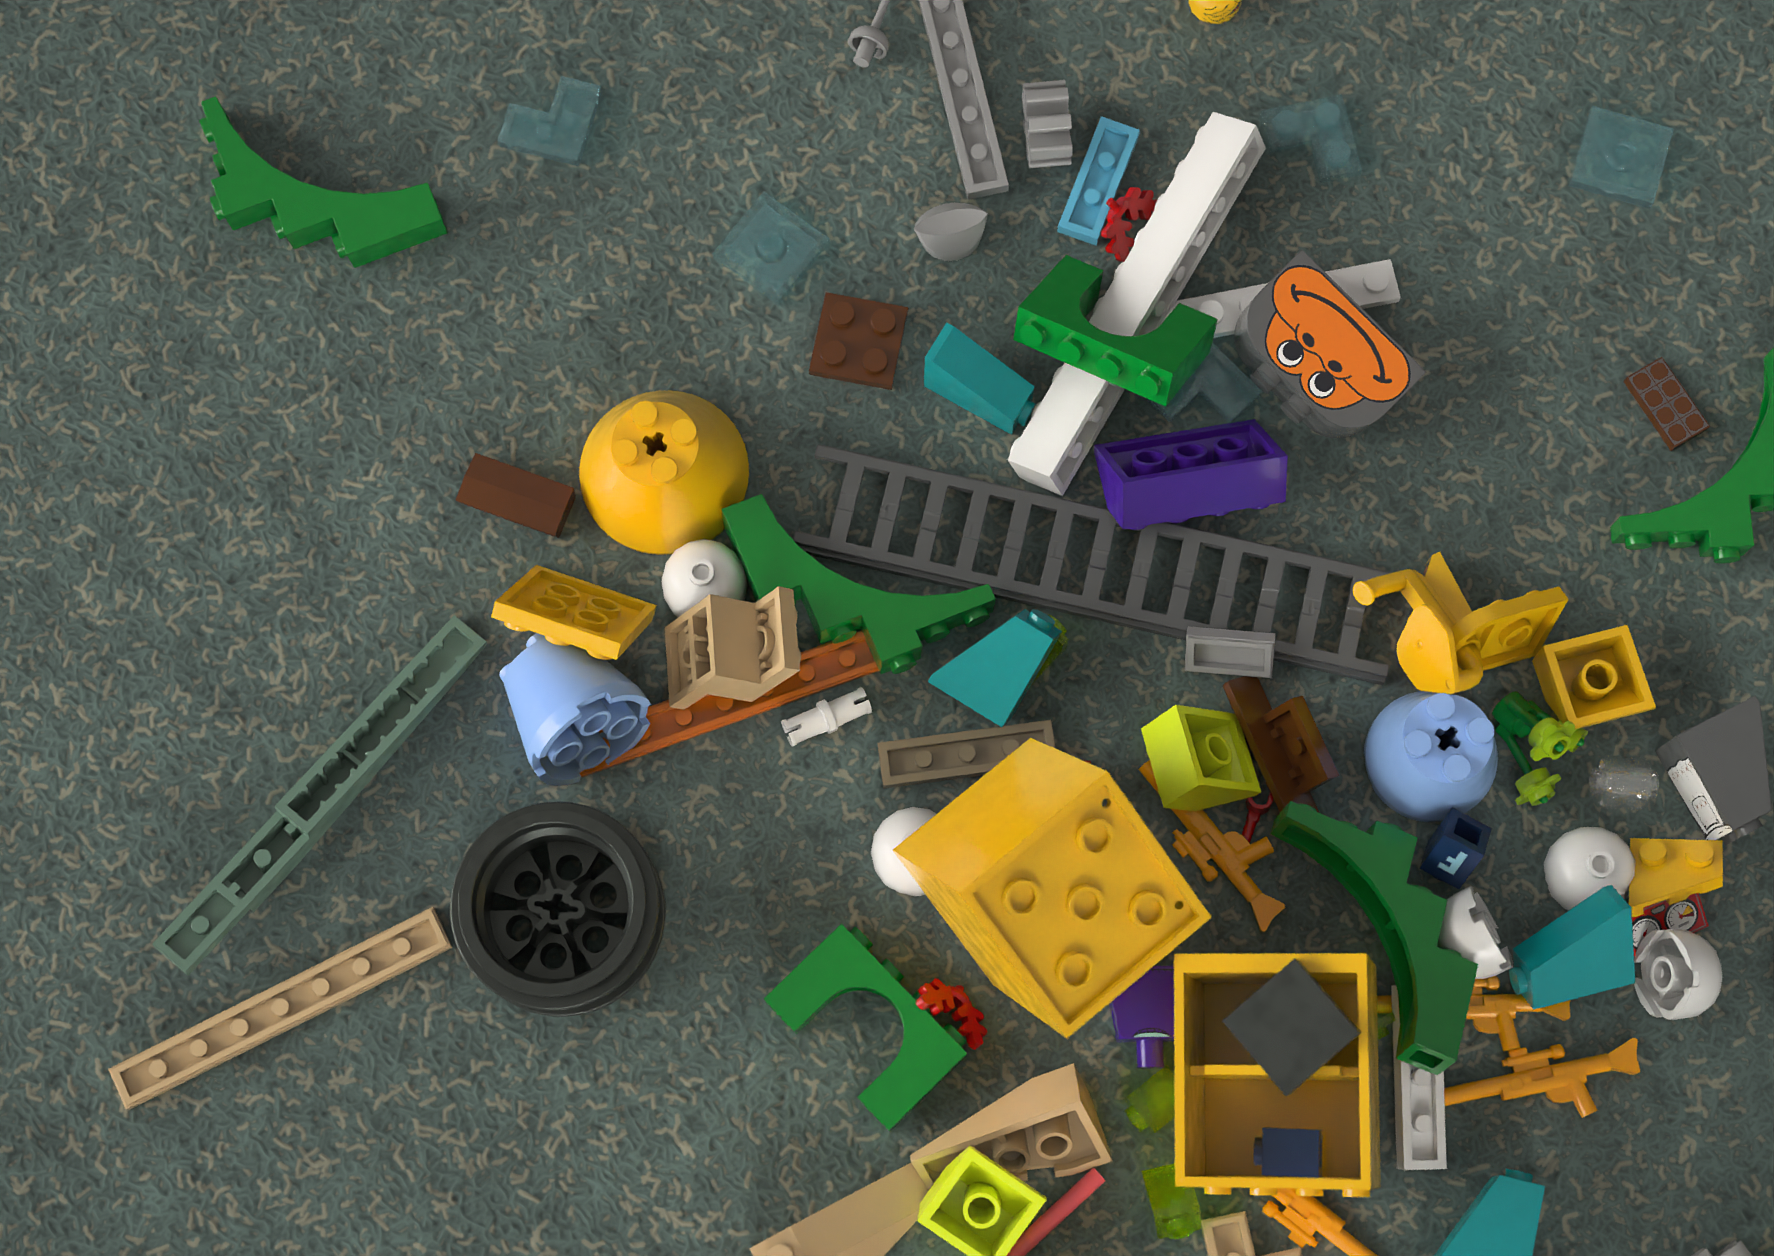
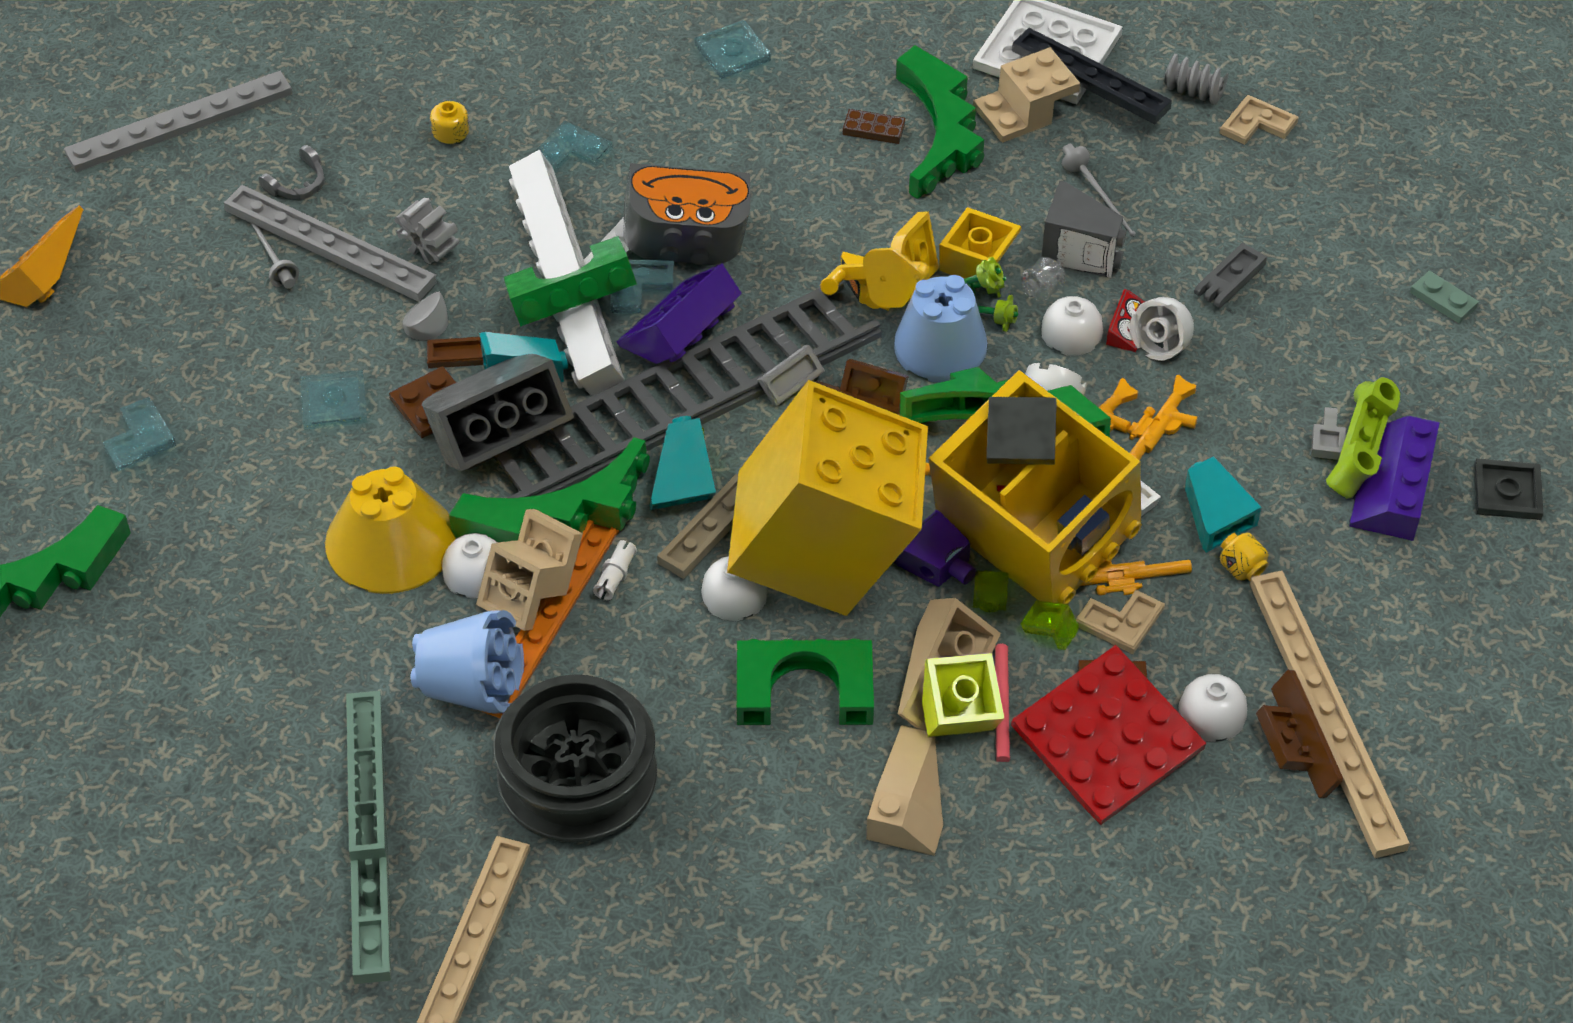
camera: 50 degrees left, 25 degrees down
(516, 495) = (318, 612): reddish brown piece -> none
(573, 612) = (415, 622): yellow plate -> none
(875, 428) = (496, 409): none -> dark grey brick
(942, 998) = (836, 633): red animal -> none
(943, 299) = (454, 352): none -> reddish brown tile
(1098, 180) = (481, 242): medium azure plate -> none
(1135, 205) = (511, 242): red animal -> none
(1455, 848) = (1000, 359): dark blue brick -> none
(1577, 953) = (1109, 352): teal slope -> none
(1673, 870) = (1111, 289): yellow wing -> none

